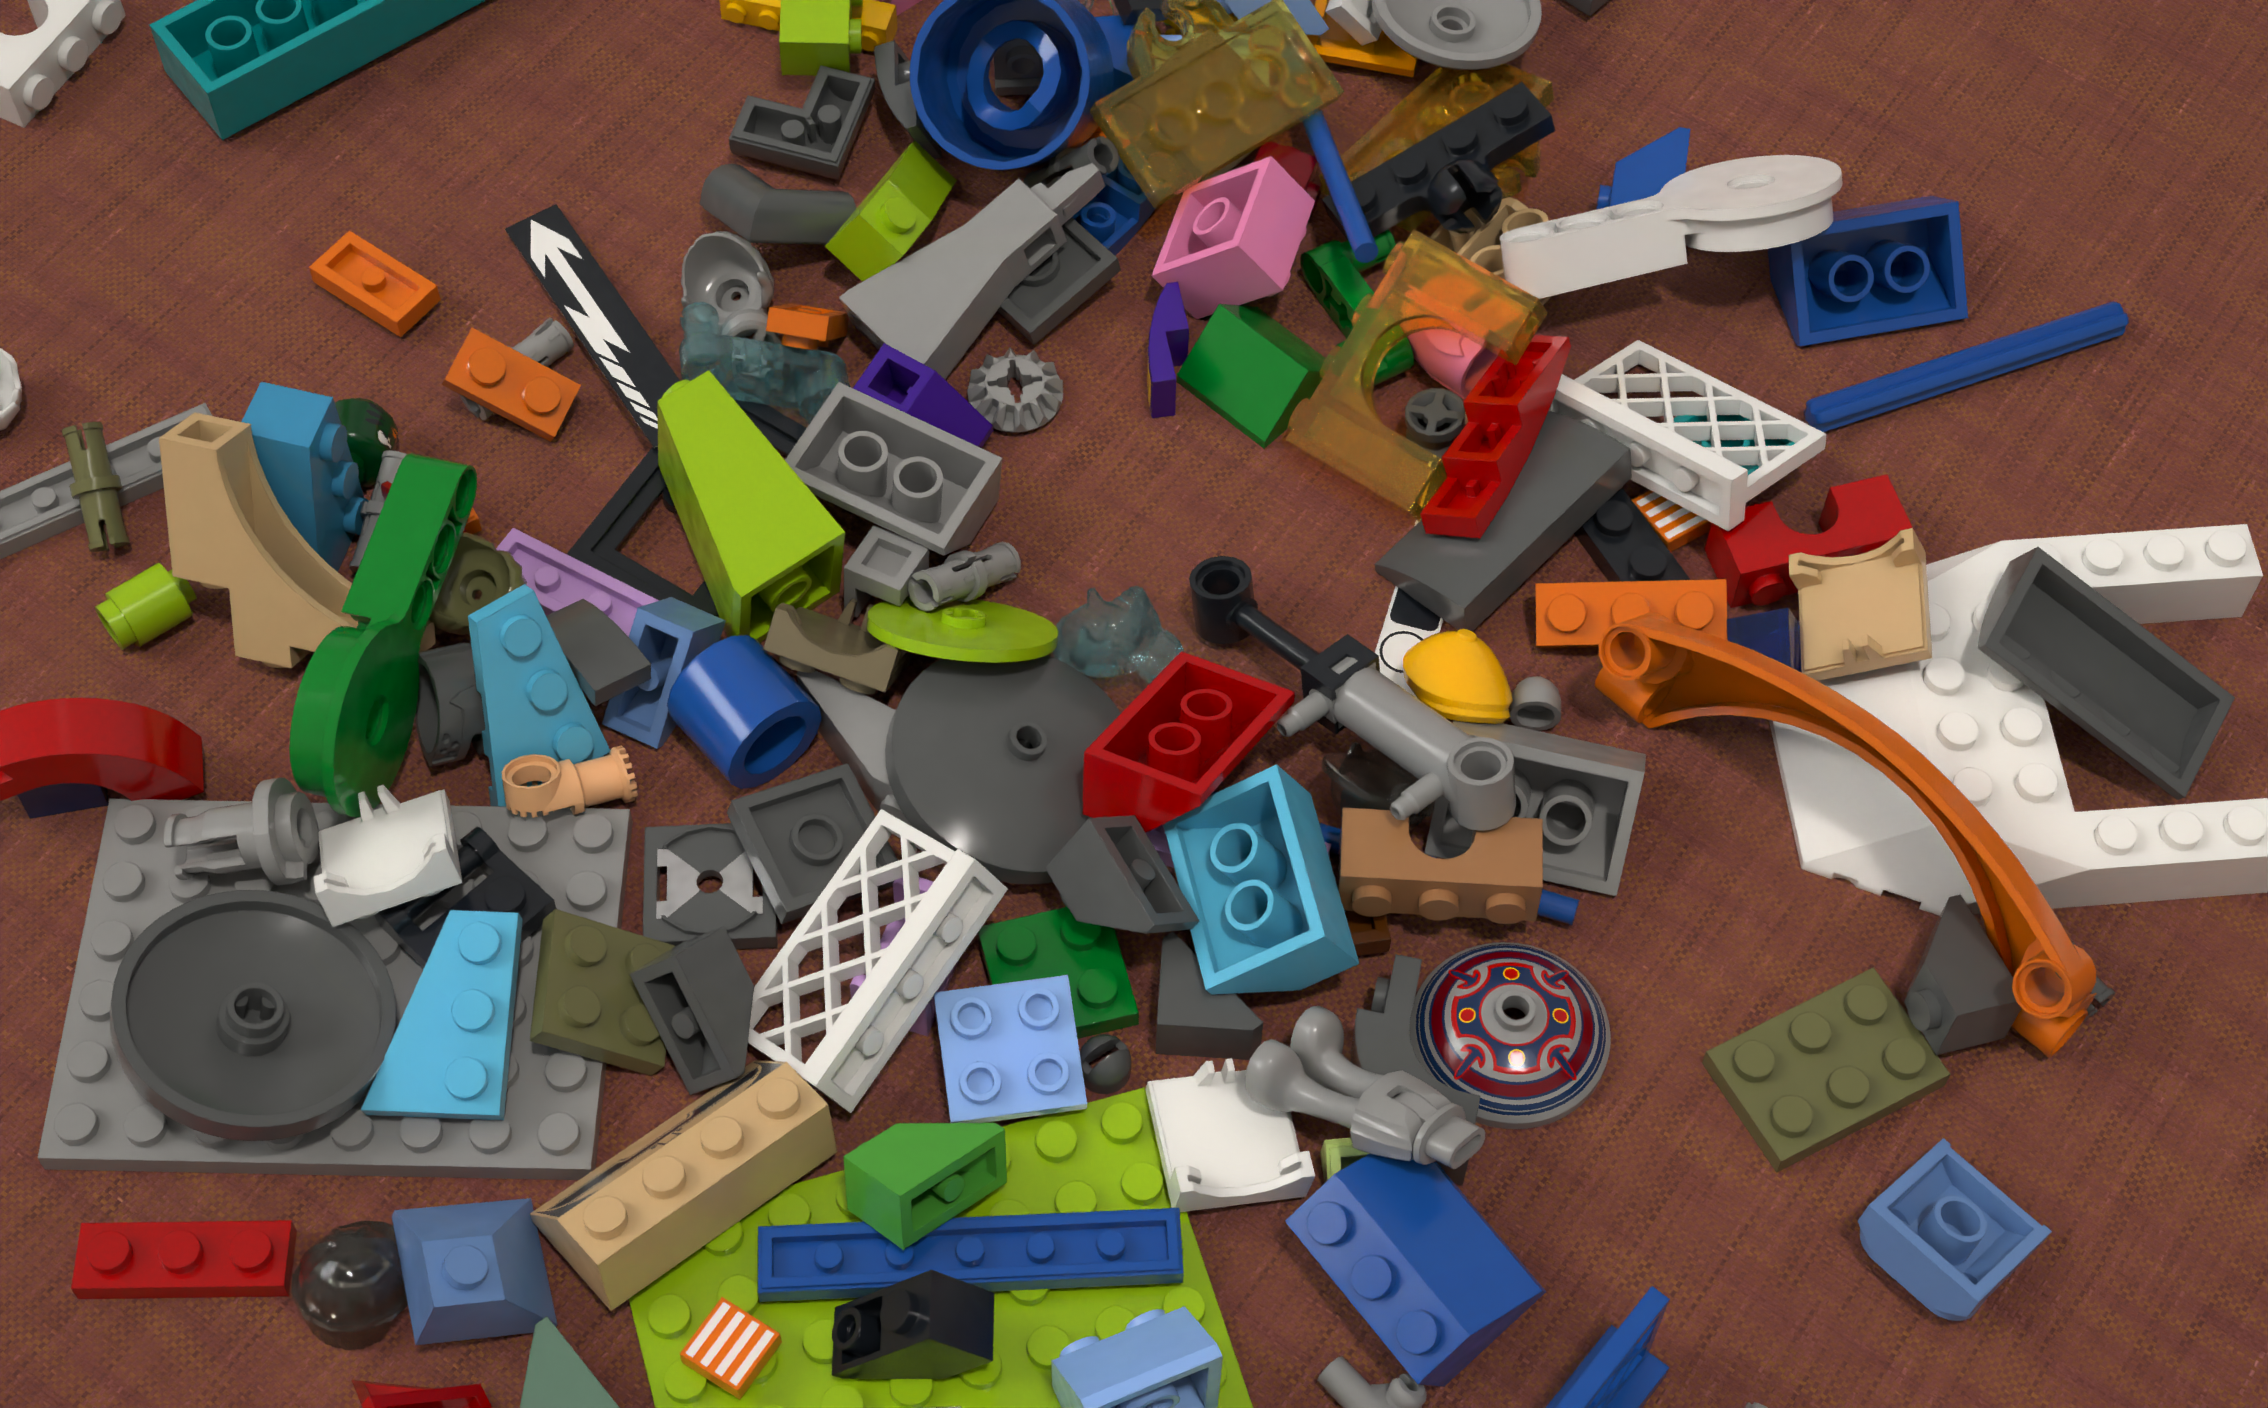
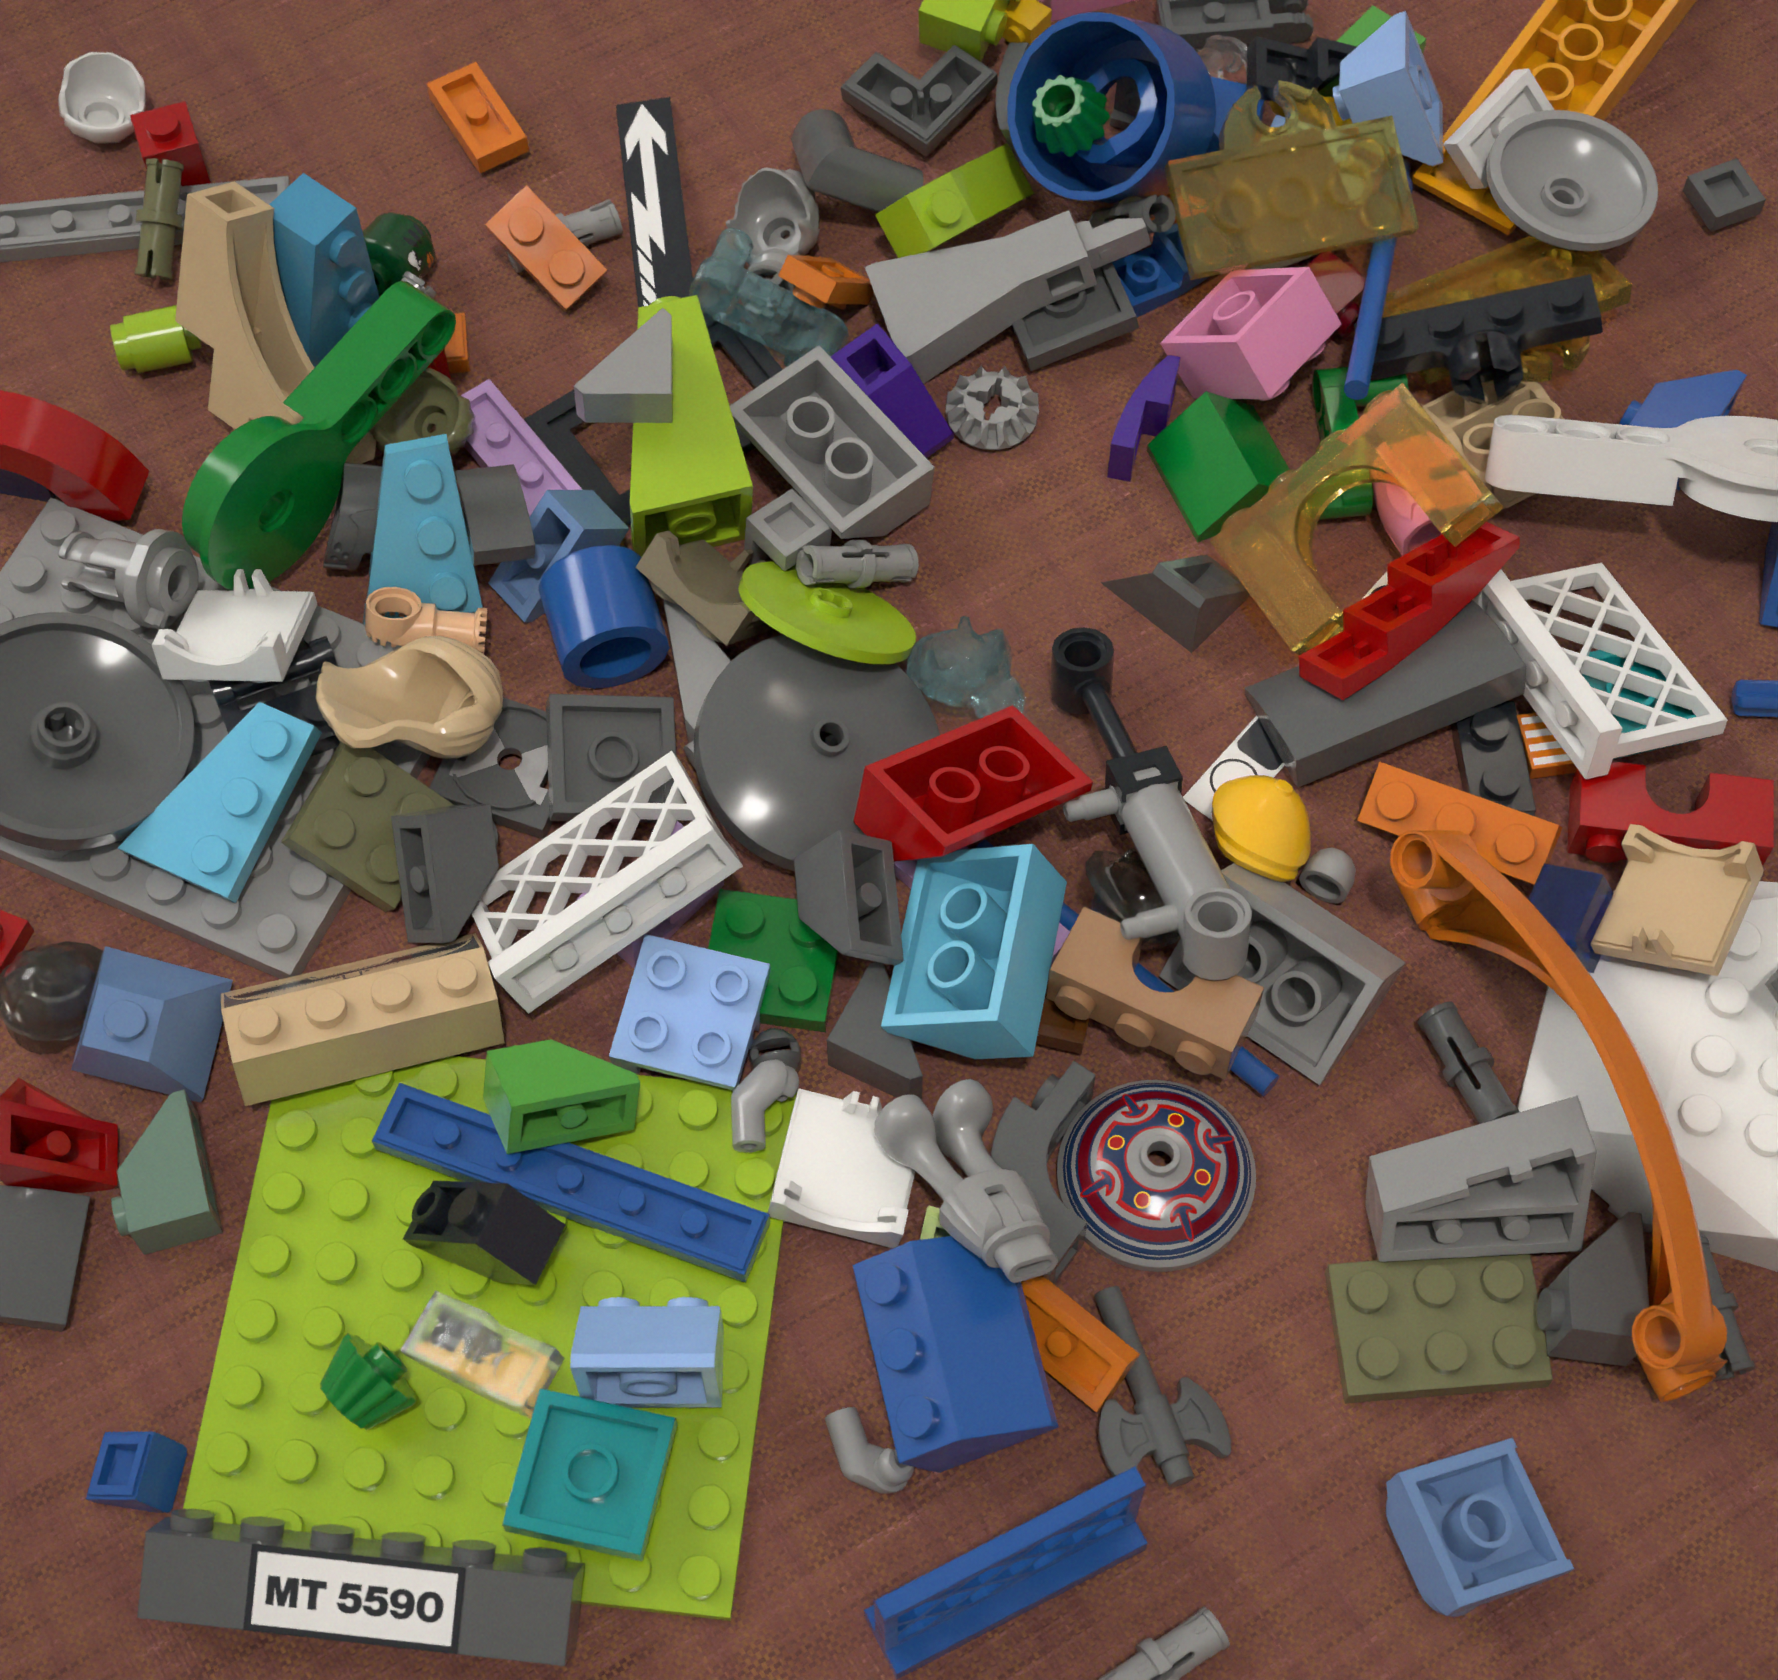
camera: 25 degrees right, 5 degrees up
(65, 401) = (171, 136): none -> red brick
(604, 845) = (425, 695): none -> tan piece
(694, 469) = (632, 380): none -> light grey slope
(730, 1348) = (328, 1180): orange tile -> none
(987, 104) = (1069, 115): none -> green piece
(1108, 1108) = (750, 1099): none -> light grey arm
(1279, 505) = (1183, 597): none -> dark grey slope
(1434, 410) = (1356, 564): dark grey wheel -> none
(1526, 1215) = (1076, 1344): none -> orange plate
(1623, 1259) = (1158, 1426): none -> dark grey piece
(1776, 854) = (1446, 1032): none -> dark grey pin
(1817, 924) = (1486, 1188): none -> light grey wedge

